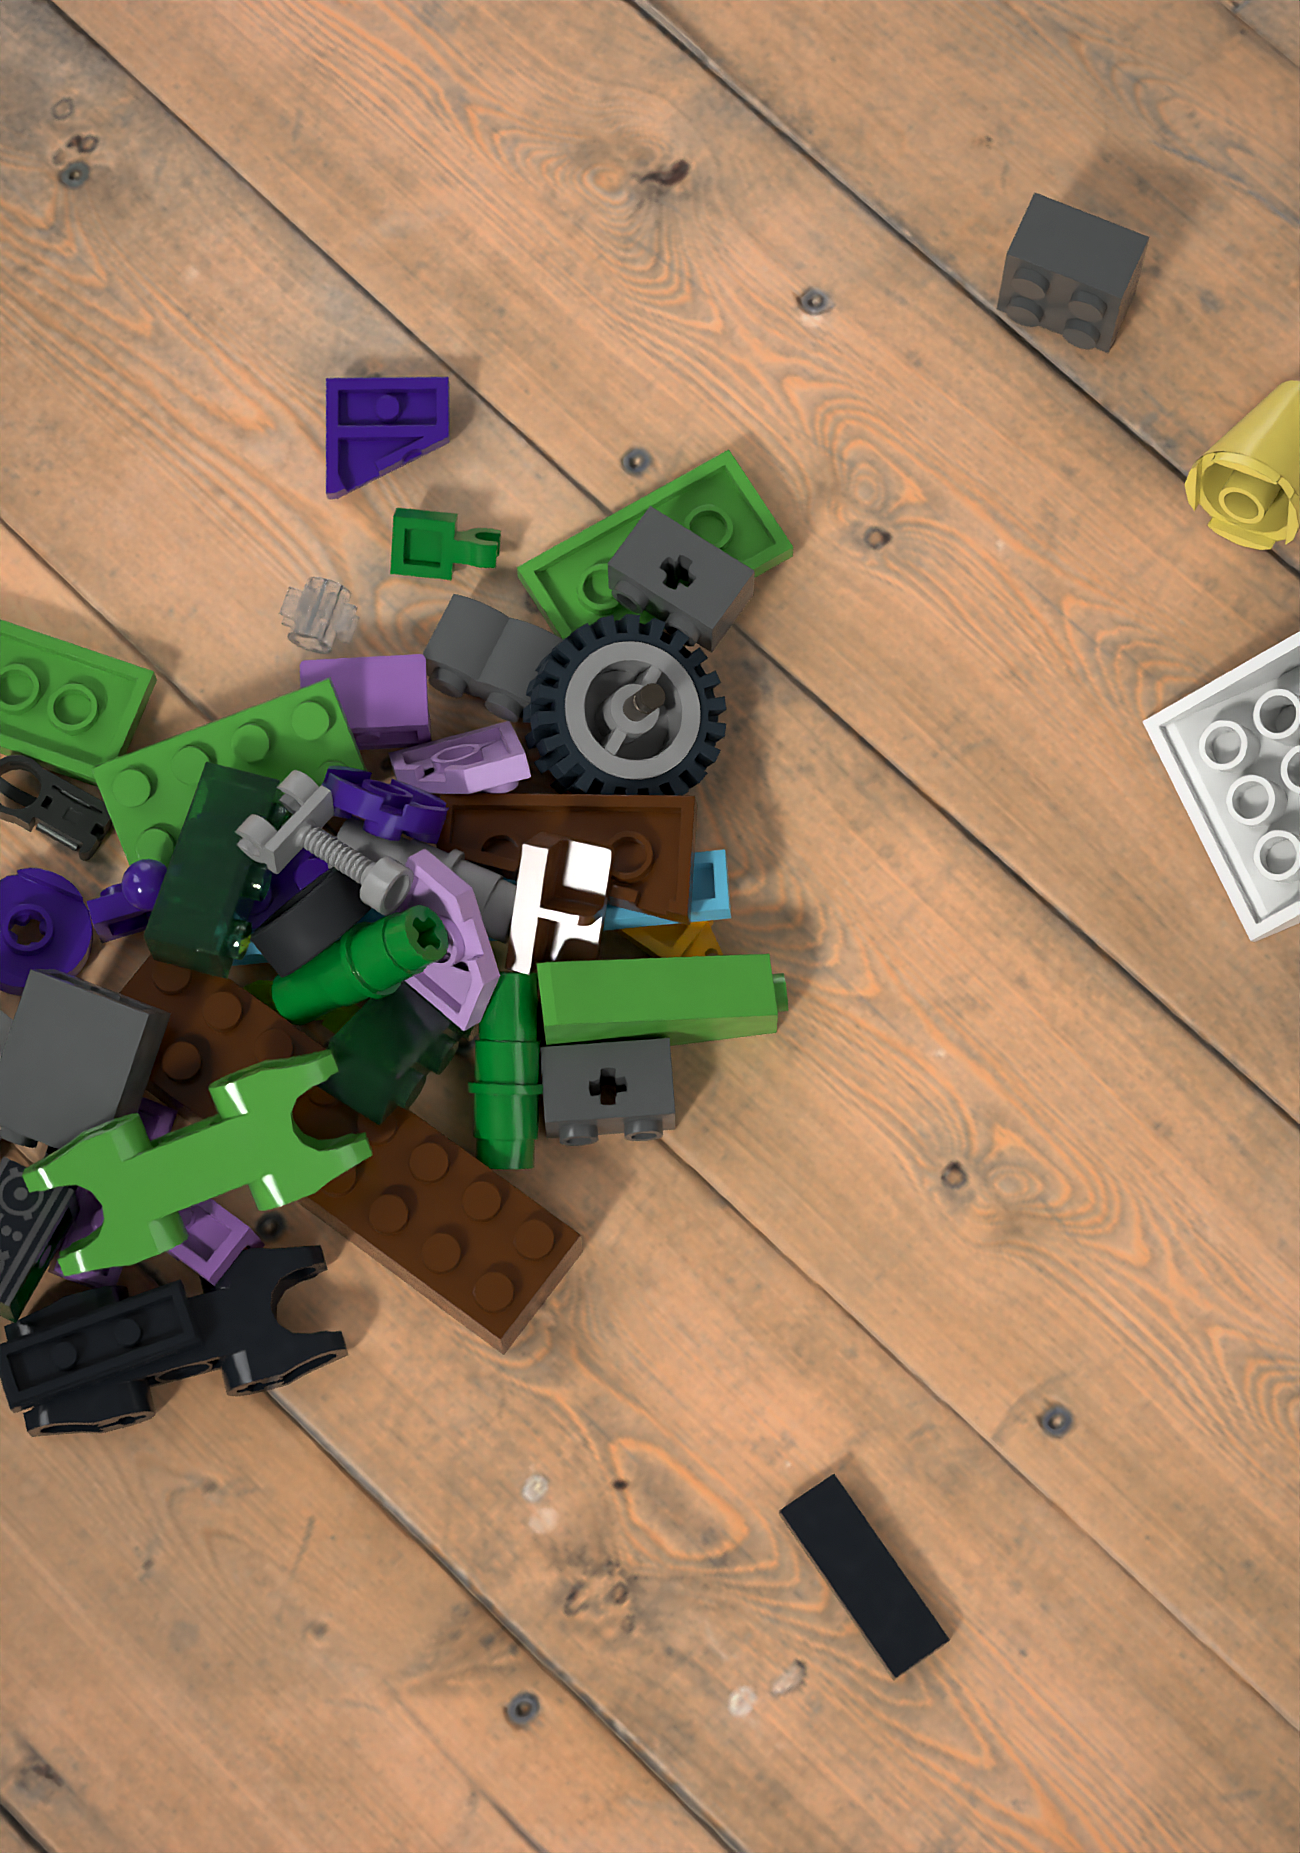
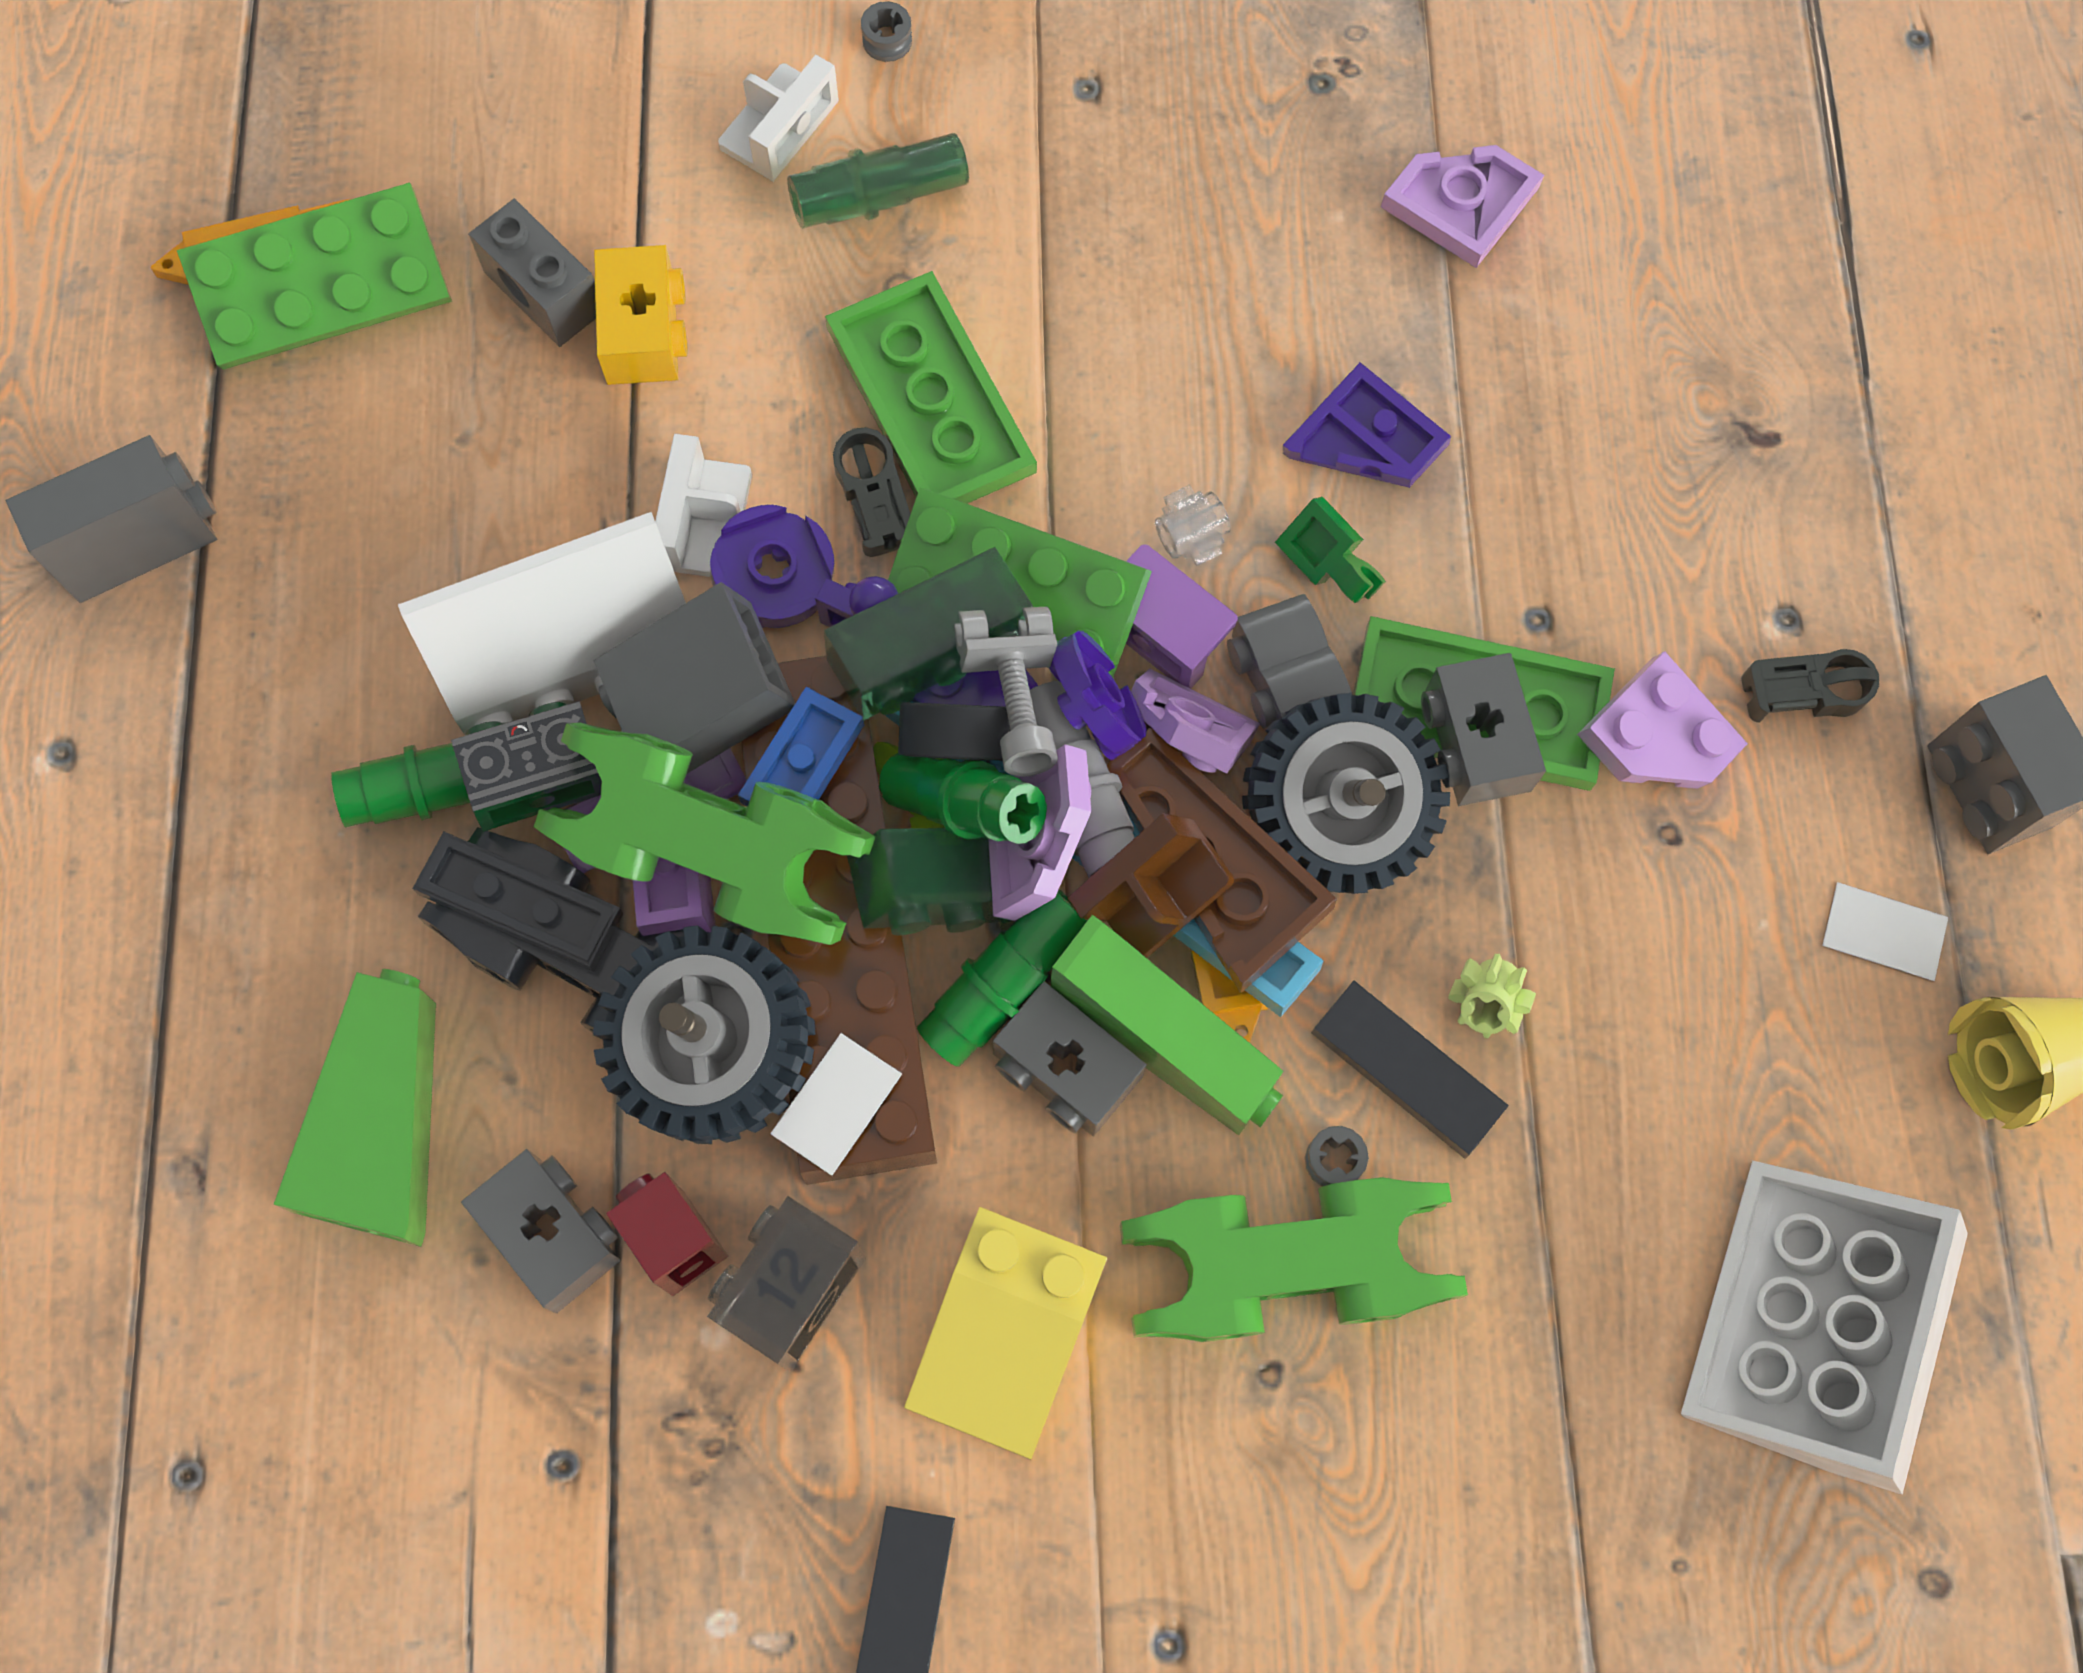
camera: 40 degrees right, 0 degrees up
(144, 1612) = (369, 1118): none -> bright green slope
(209, 1036) = (807, 747): none -> blue plate
(278, 177) = (1463, 198): none -> lavender plate
(340, 1305) = (704, 1035): none -> wheel
(379, 1582) = (508, 1214): none -> dark grey brick
(445, 1469) = (665, 1232): none -> dark red brick
(480, 1266) = (836, 1104): none -> white sticker
(569, 1424) = (785, 1282): none -> clear smoke brick
(747, 1316) = (1005, 1332): none -> light yellow slope
(803, 465) = (1662, 730): none -> lavender plate
(845, 971) = (1335, 1137): none -> dark grey bush
(851, 874) = (1410, 1069): none -> black tile
(861, 768) = (1492, 996): none -> yellowish green gear
(864, 1121) = (1241, 1265): none -> bright green piece
(870, 341) = (1803, 684): none -> pearl dark grey piece
(1087, 473) = (1885, 931): none -> white sticker

